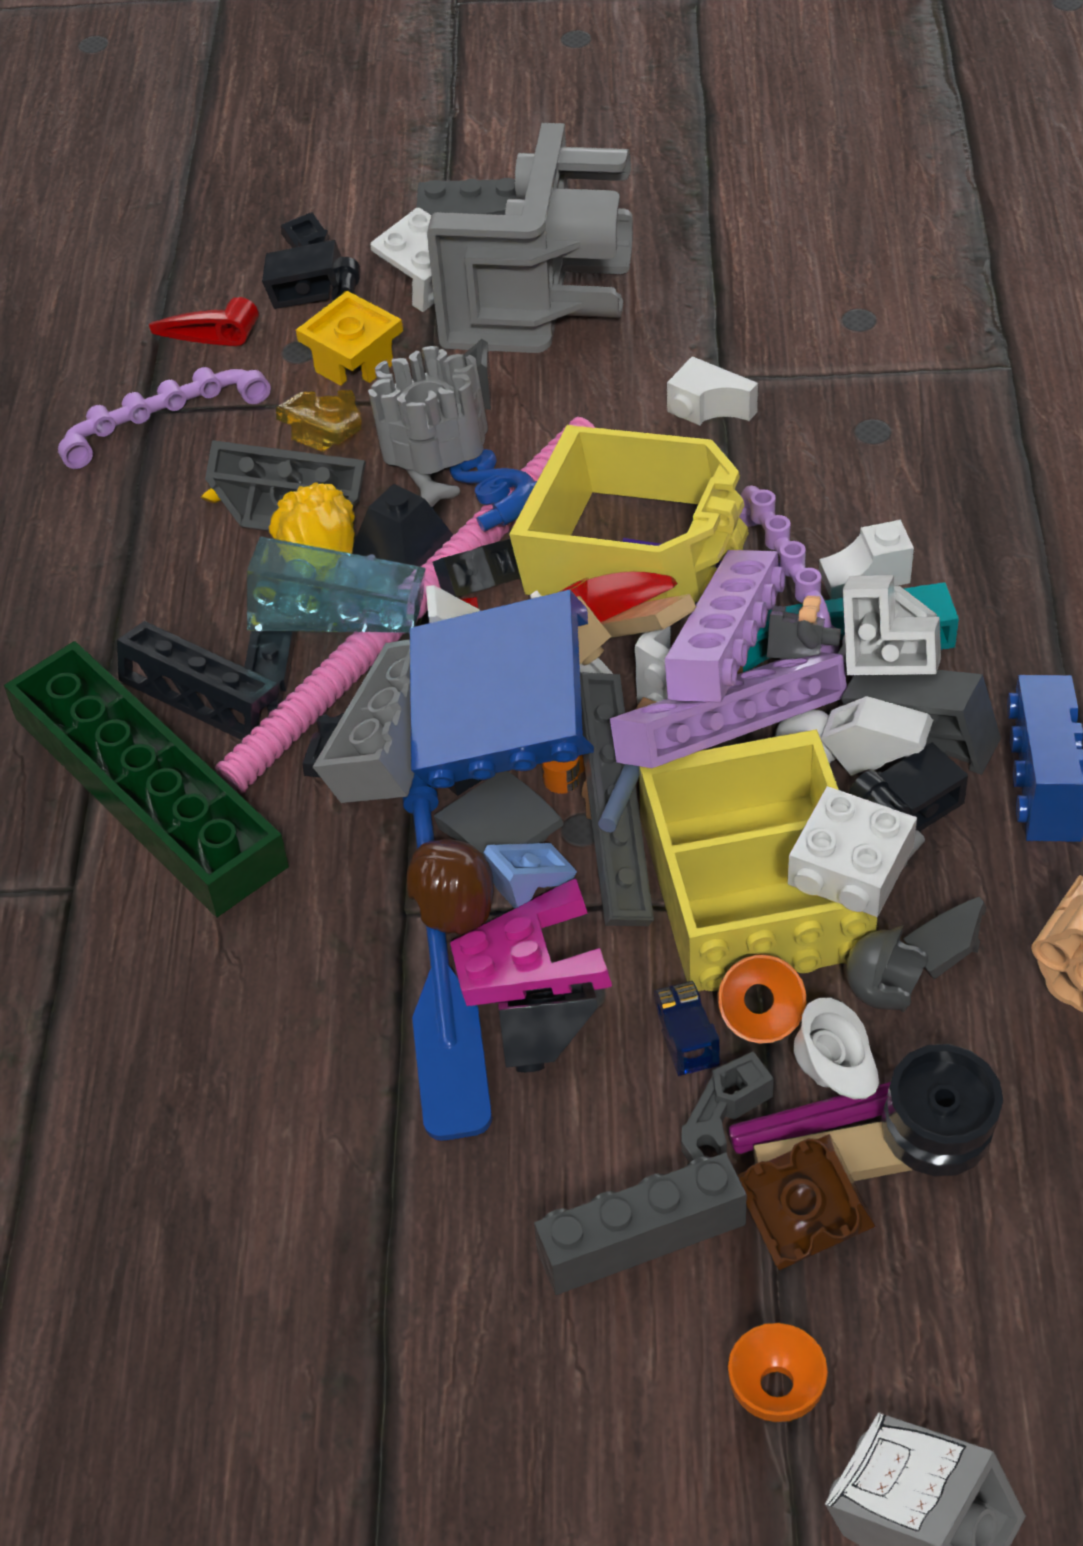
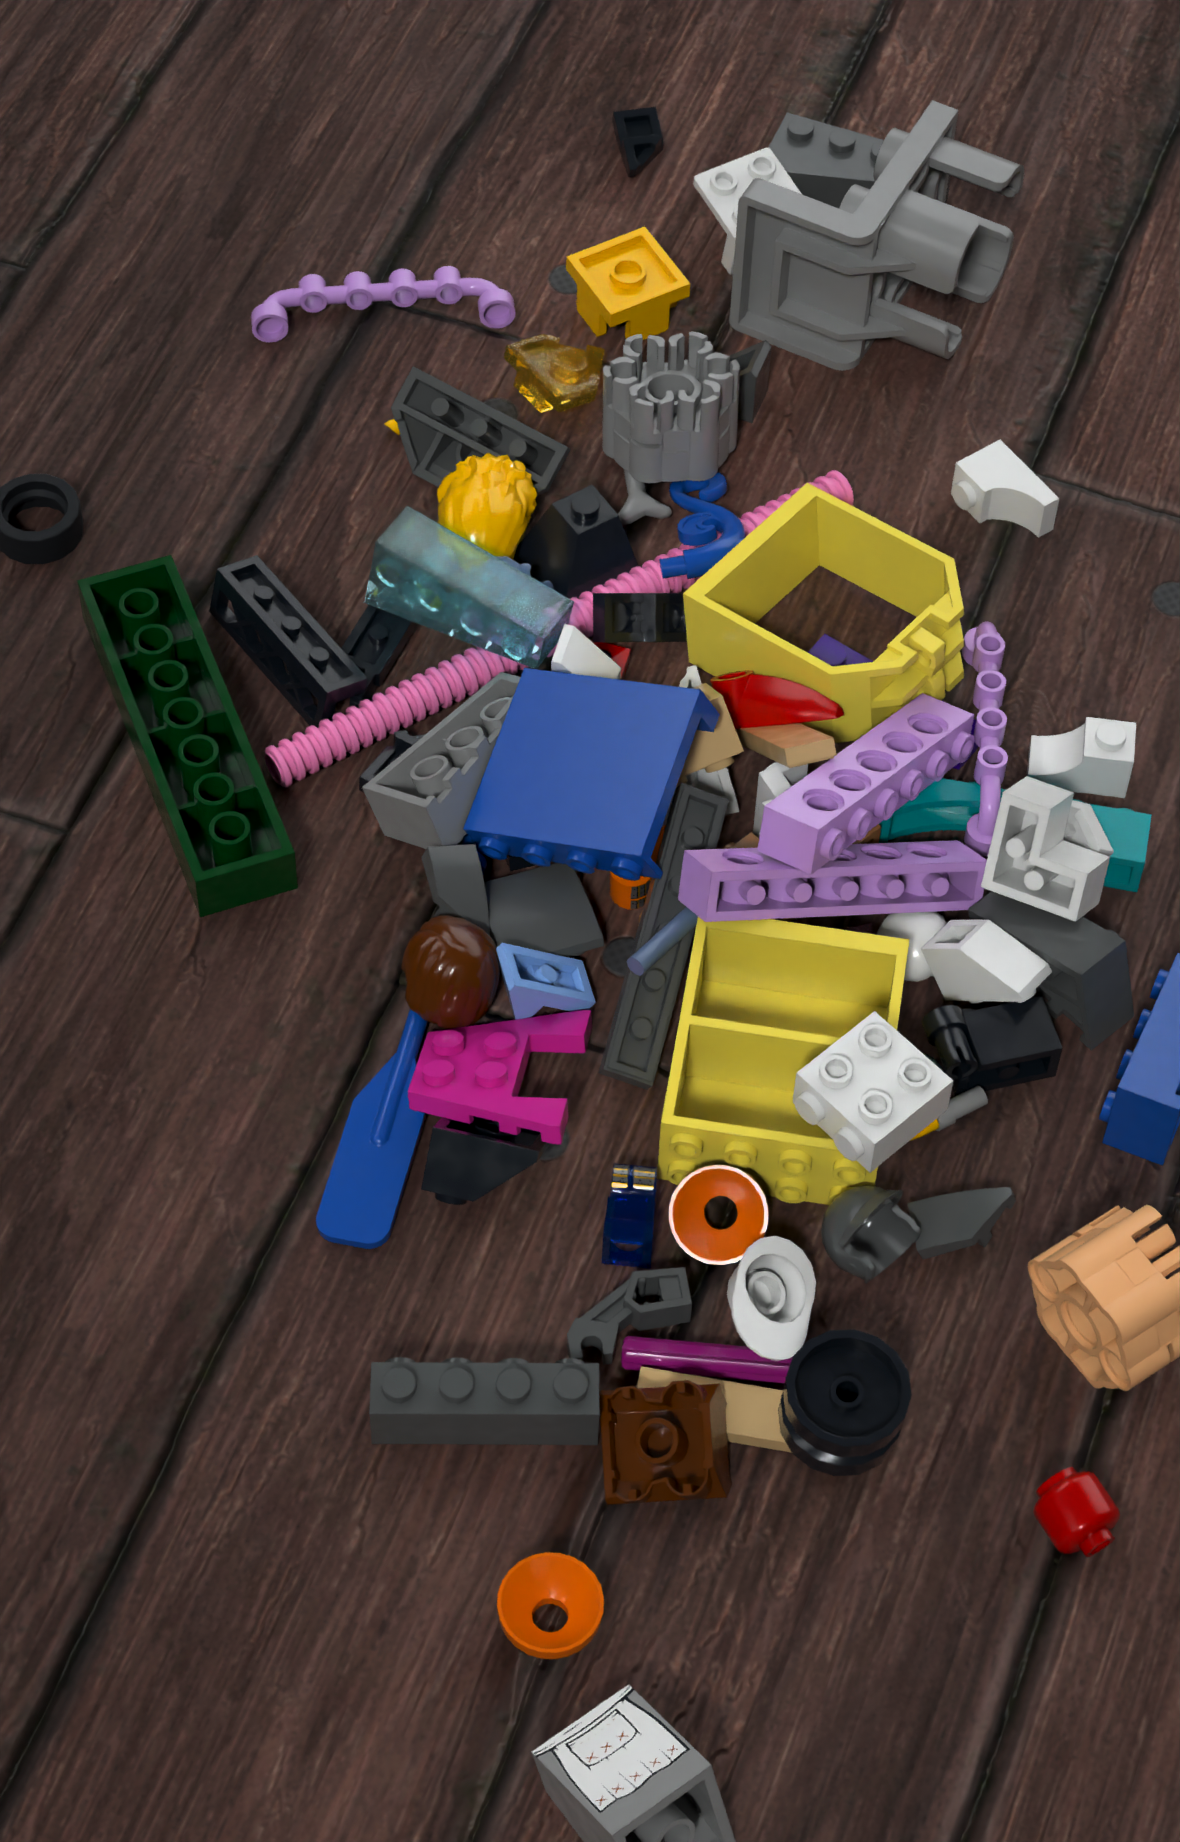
camera: 15 degrees right, 5 degrees up
(213, 327) = (484, 216): red piece -> none
(308, 273) = (616, 187): black hinge -> none
(424, 813) = (457, 883): none -> dark grey slope
(799, 634) = (952, 818): dark grey piece -> none

